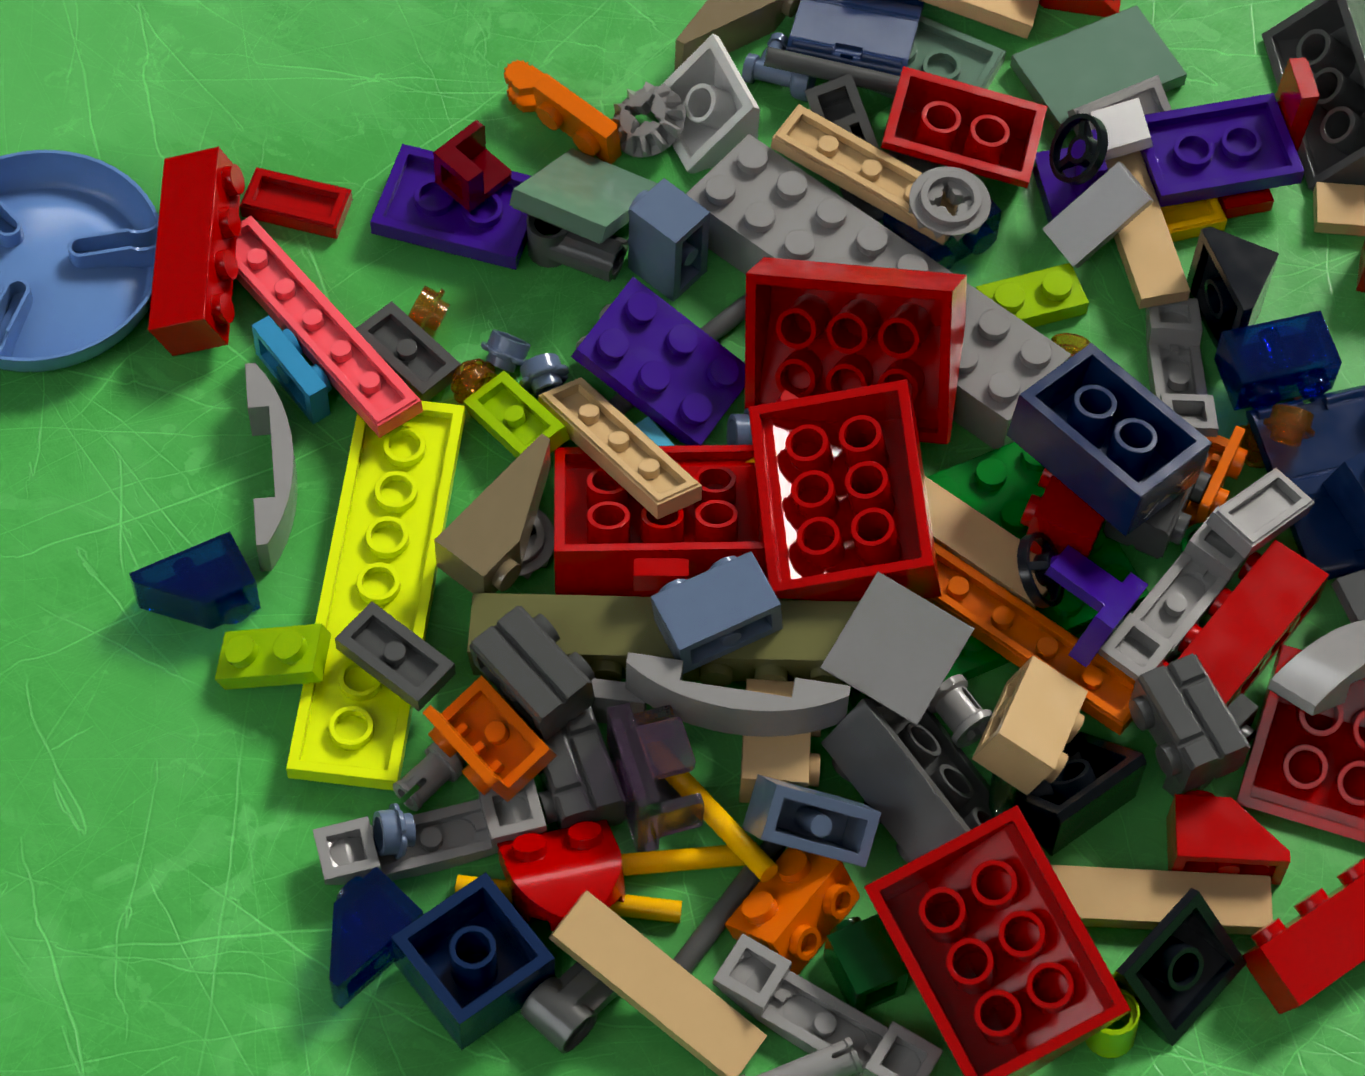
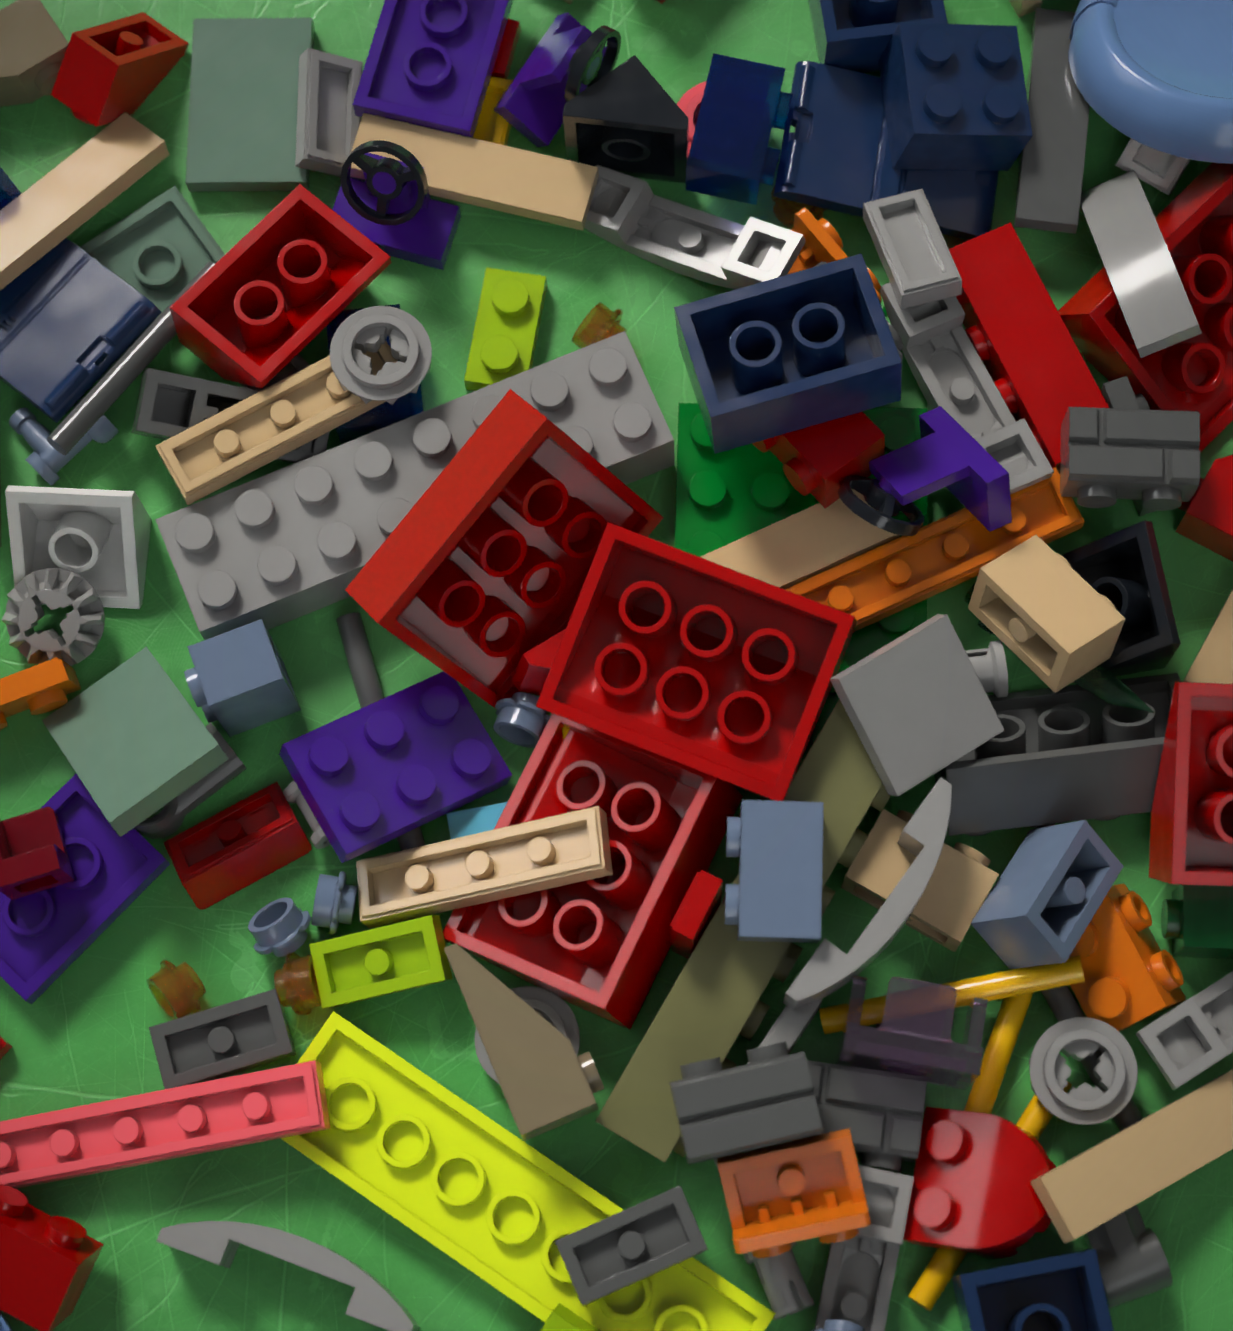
camera: 55 degrees left, 15 degrees up
(284, 359) = (149, 1187): dark azure plate -> none
(548, 304) = (237, 846): none -> red slope
(676, 893) = (1114, 1070): none -> light grey gear
(1098, 215) = (460, 207): light grey tile -> none
(1125, 128) = (365, 118): white tile -> none
(1254, 226) = (557, 70): none -> dark purple piece
(1289, 424) = (826, 161): clear orange plate -> none

